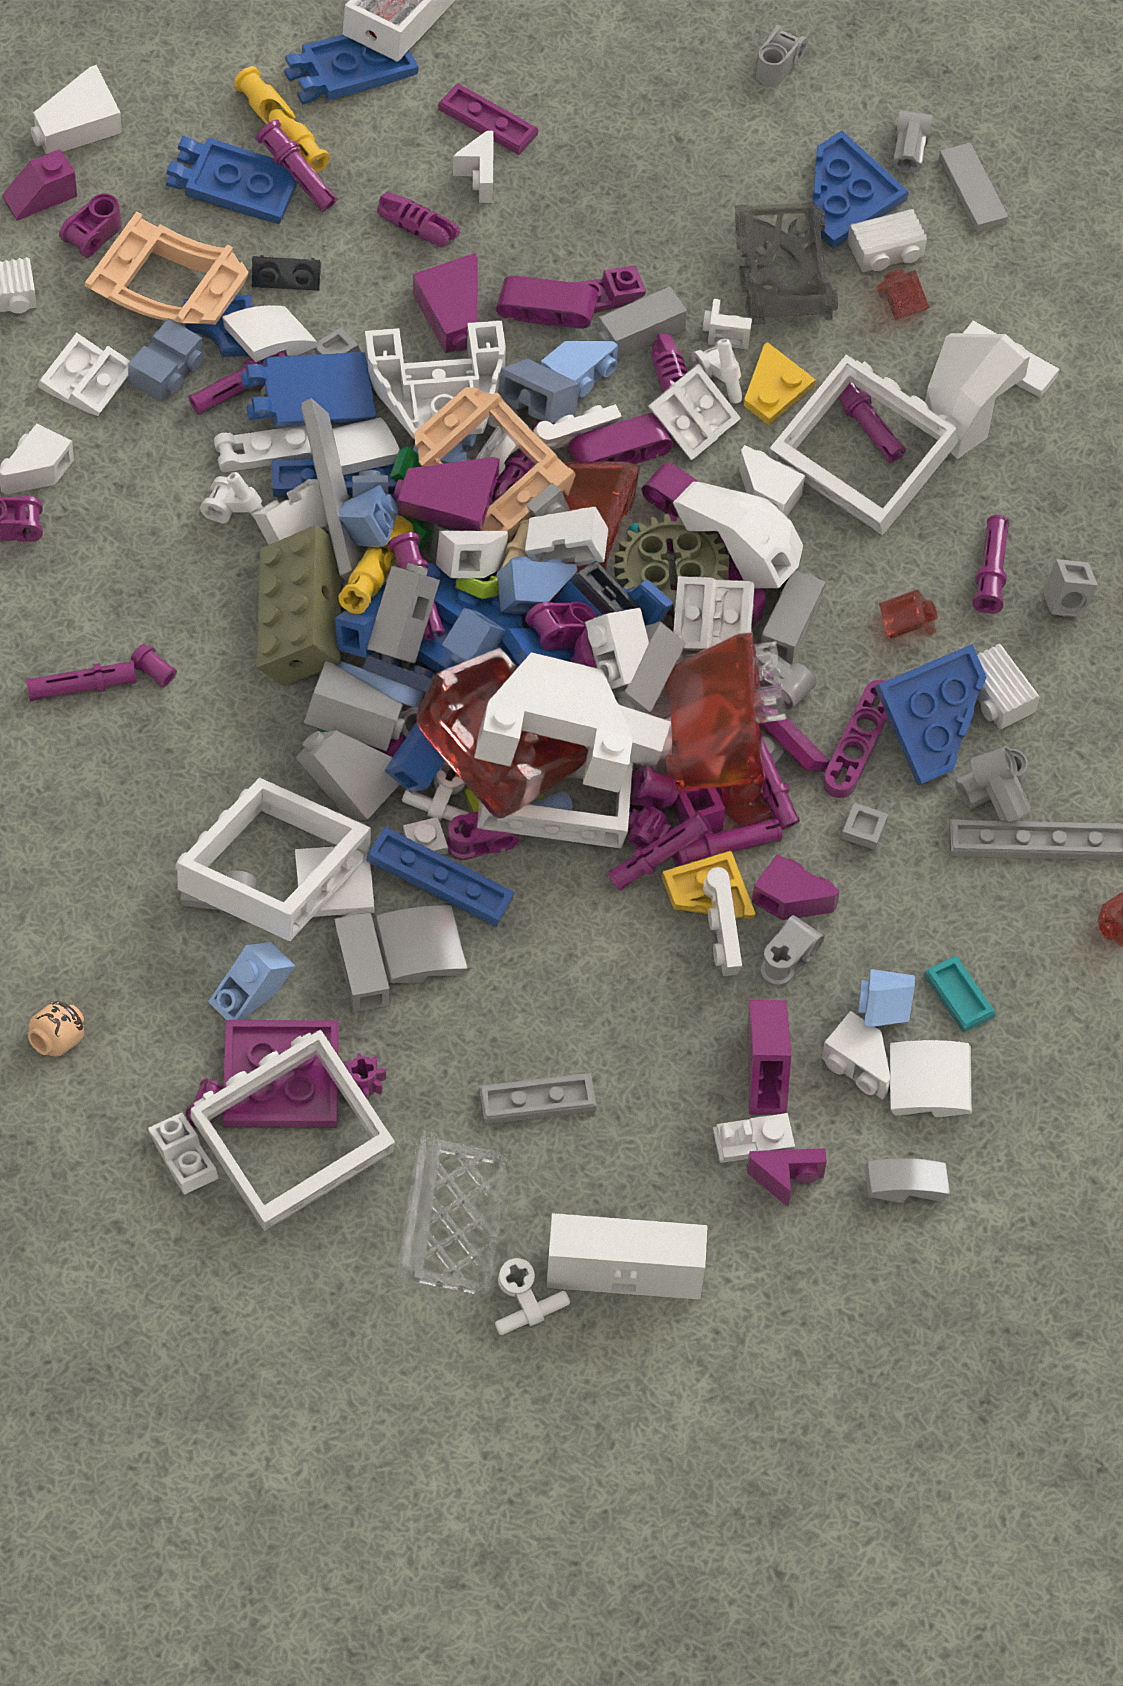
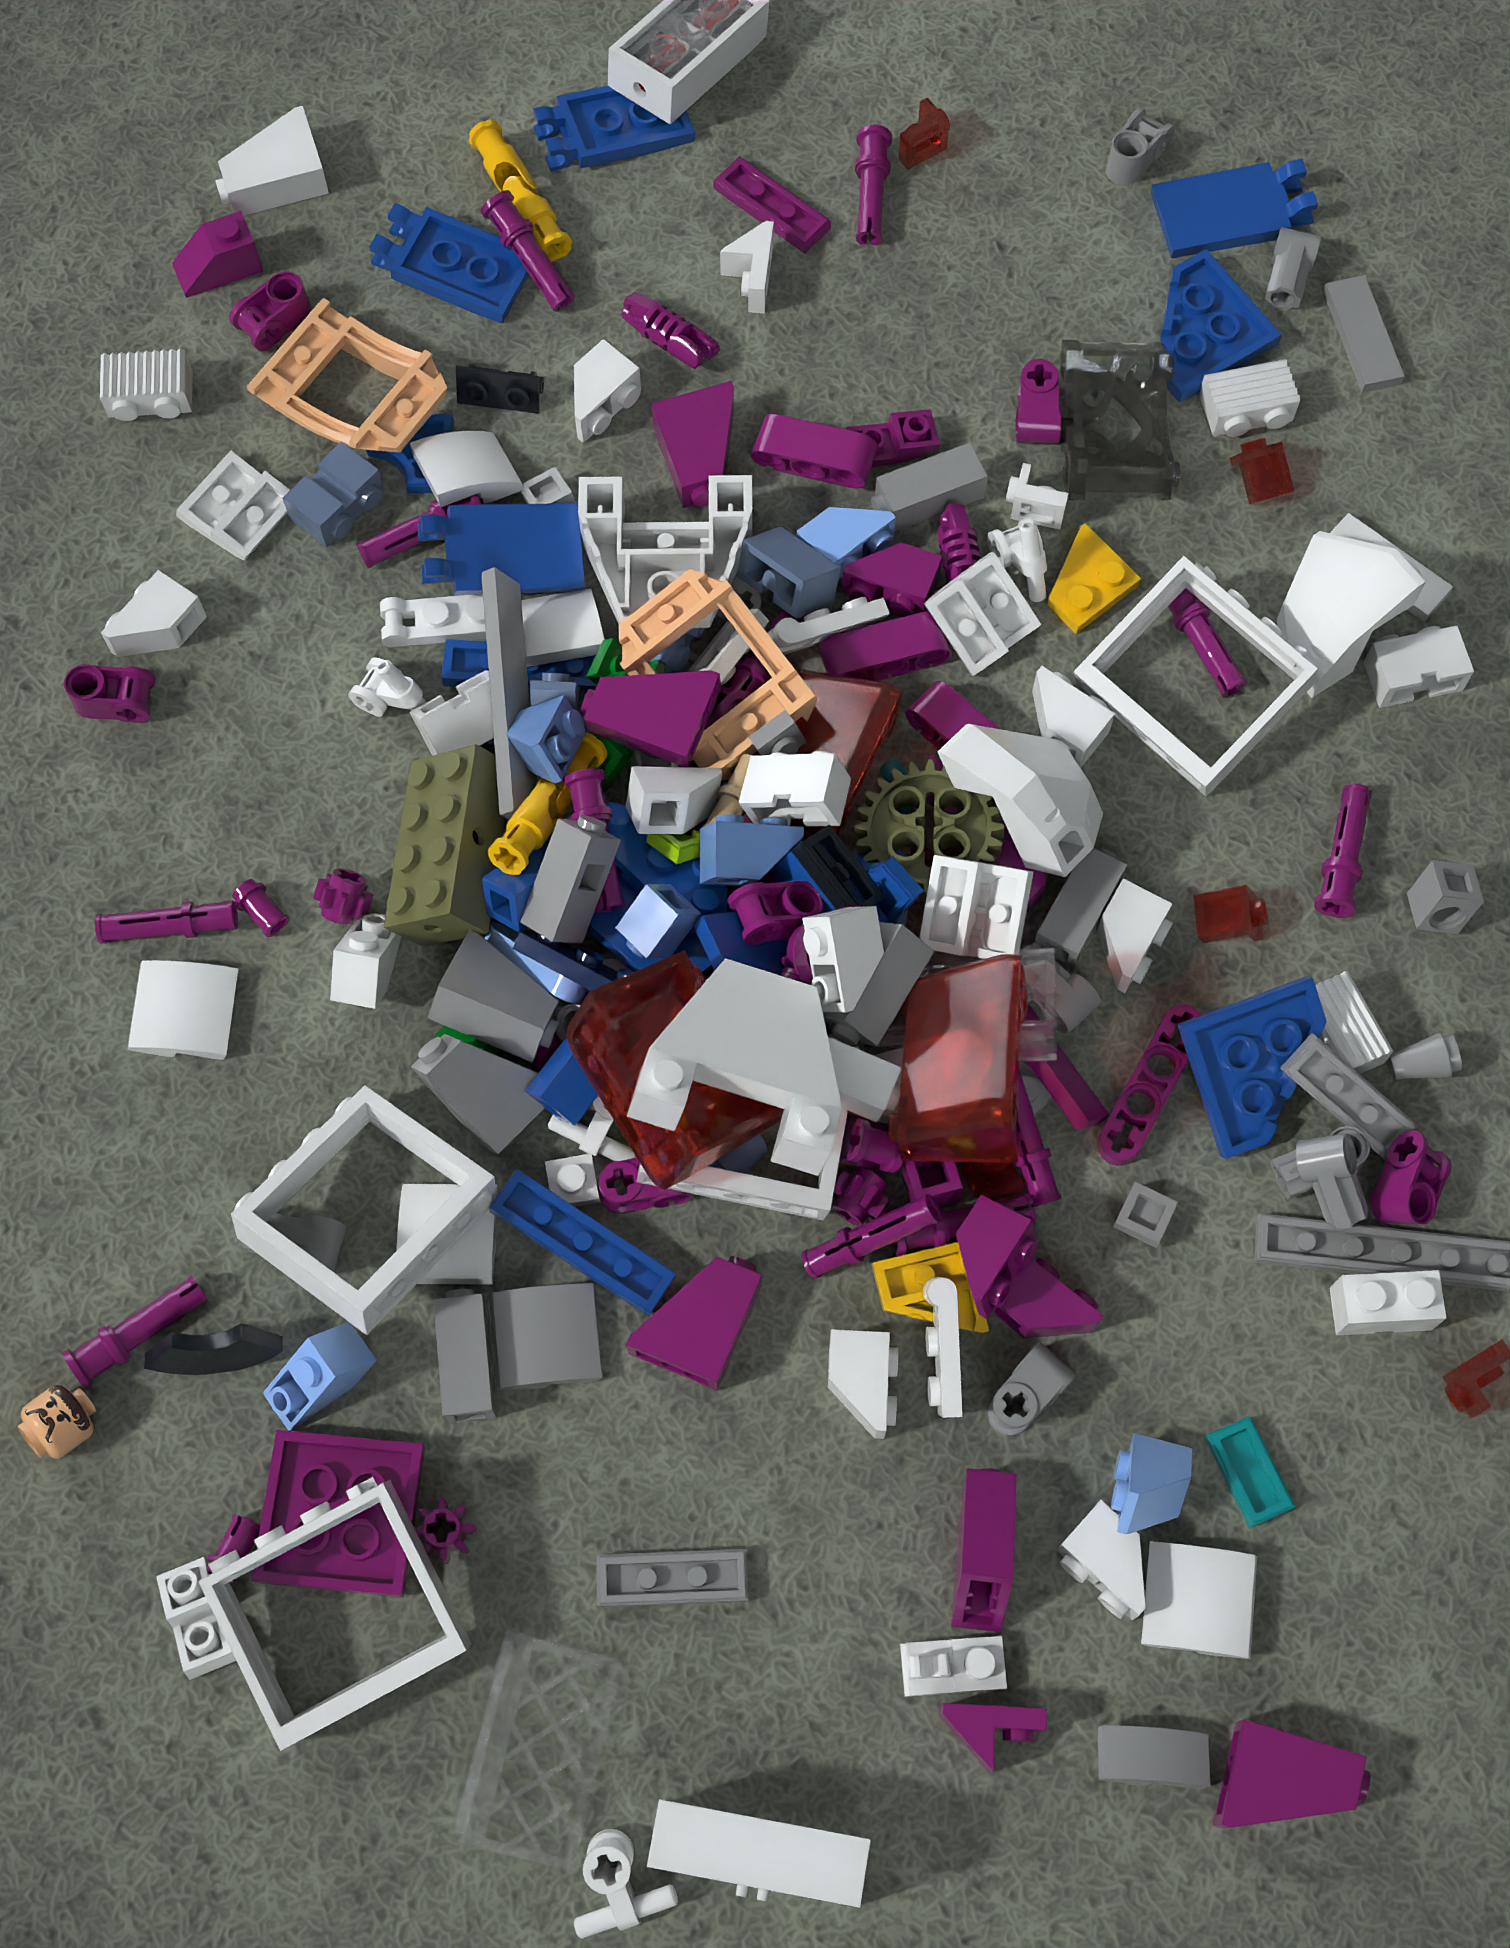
camera: 10 degrees right, 10 degrees up
(91, 974) = (115, 1343): none -> magenta pin
(104, 741) = (183, 1009): none -> white slope
(168, 973) = (213, 1352): none -> black tile
(219, 650) = (343, 896): none -> magenta gear
(243, 695) = (364, 962): none -> white slope
(370, 265) = (602, 387): none -> white slope
(536, 925) = (700, 1323): none -> magenta slope
(567, 86) = (872, 170): none -> magenta pin
(607, 58) = (926, 137): none -> clear red bracket
(626, 386) = (898, 574): none -> magenta slope
(661, 950) = (860, 1375): none -> white slope
(720, 255) = (1038, 404): none -> magenta piece
(752, 848) = (993, 1248): none -> magenta slope
(832, 631) = (1129, 929): none -> white slope
(859, 98) = (1231, 207): none -> blue tile
(1005, 1184) = (1286, 1777): none -> magenta slope
(1008, 729) = (1346, 1094): none -> light grey tile
(1036, 426) = (1418, 662): none -> white brick
(1050, 868) = (1387, 1302): none -> white brick
(1060, 786) = (1410, 1186): none -> magenta piece
(1066, 704) = (1429, 1058): none -> light grey cone

